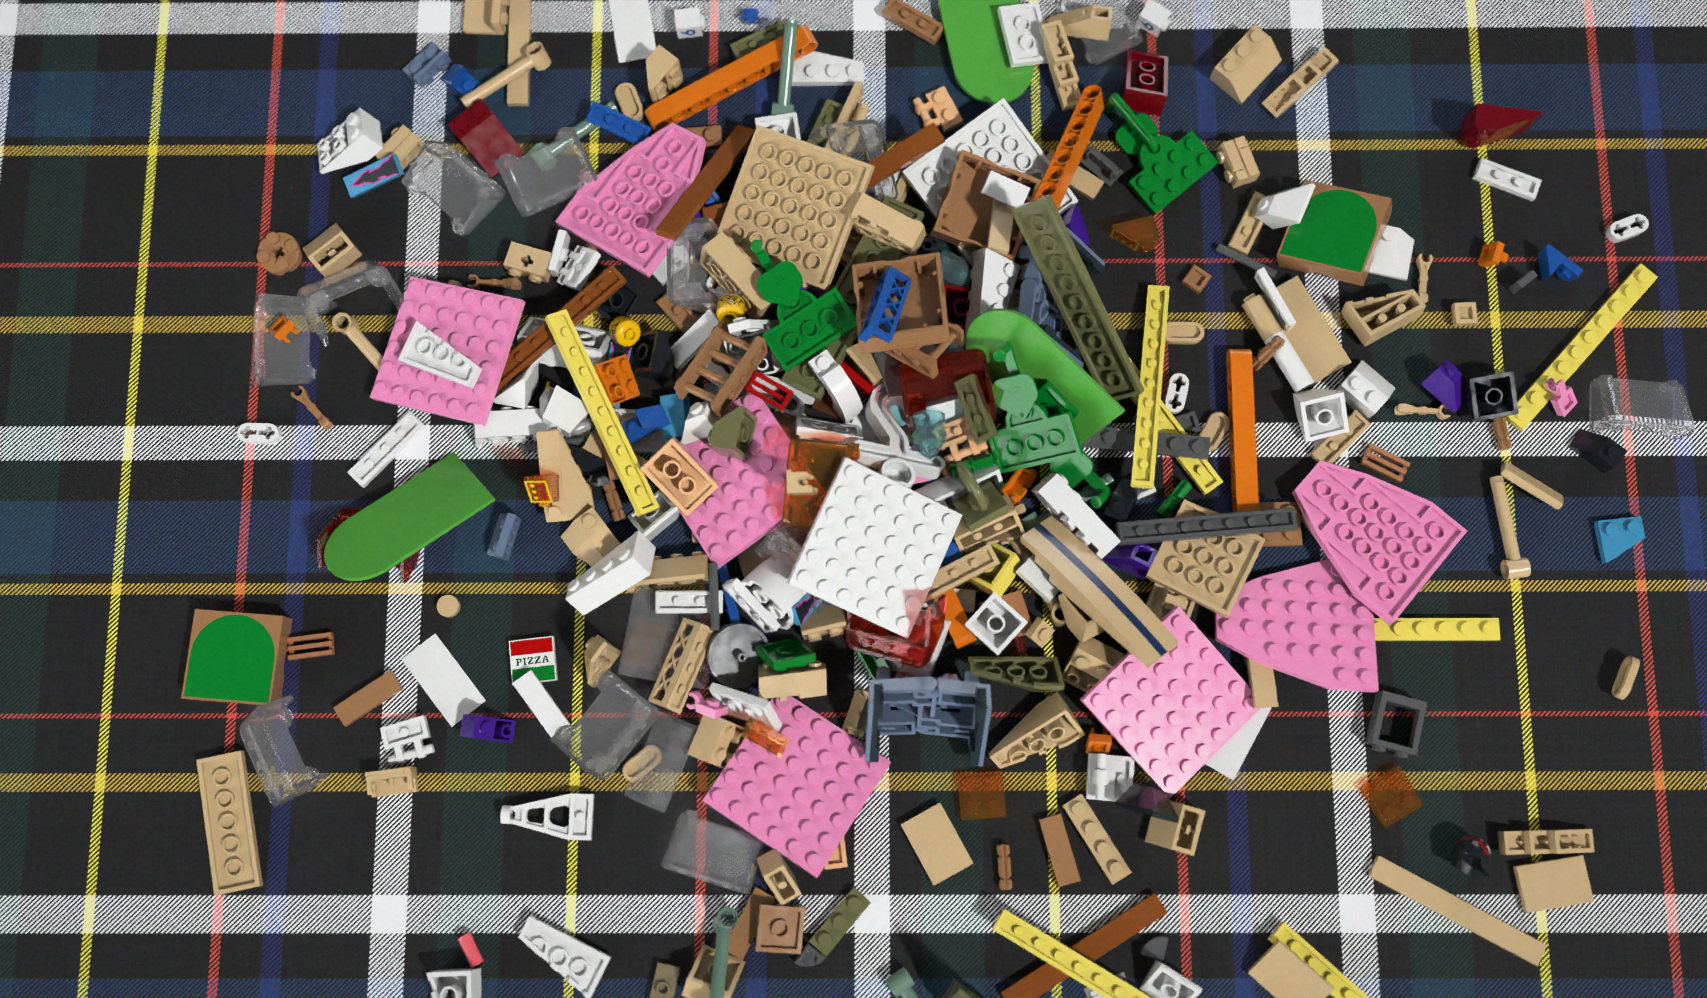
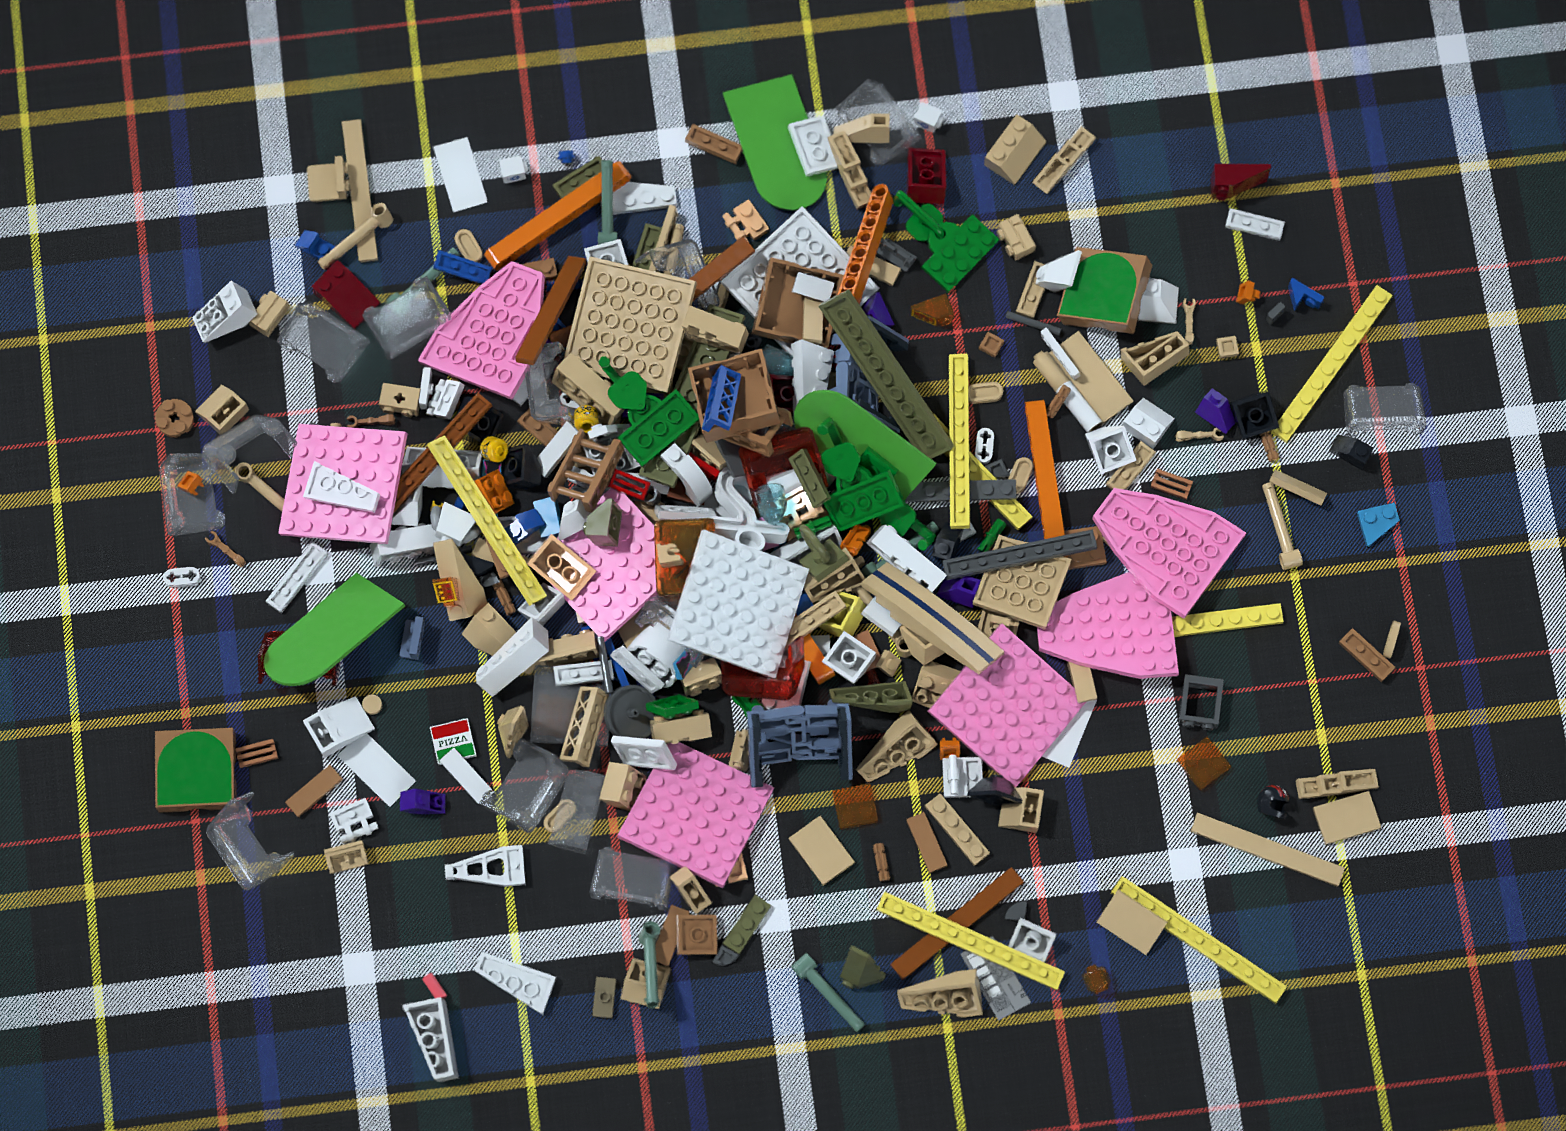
camera: 10 degrees left, 5 degrees down
(229, 823) = (210, 908): tan plate -> none
(373, 175) = (250, 339): tile -> none
(404, 627) = (338, 726): none -> white slope
(427, 65) = (281, 234): sand blue bracket -> none
(662, 73) = (497, 219): tan slope -> none
(709, 707) = (613, 757): bright pink plate -> none
(765, 737) = (664, 776): clear orange plate -> none
(1563, 397) = (1318, 409): bright pink plate -> none
(1594, 692) = (1366, 655): none -> medium nougat plate
(1625, 225) = (1361, 251): white beam -> none

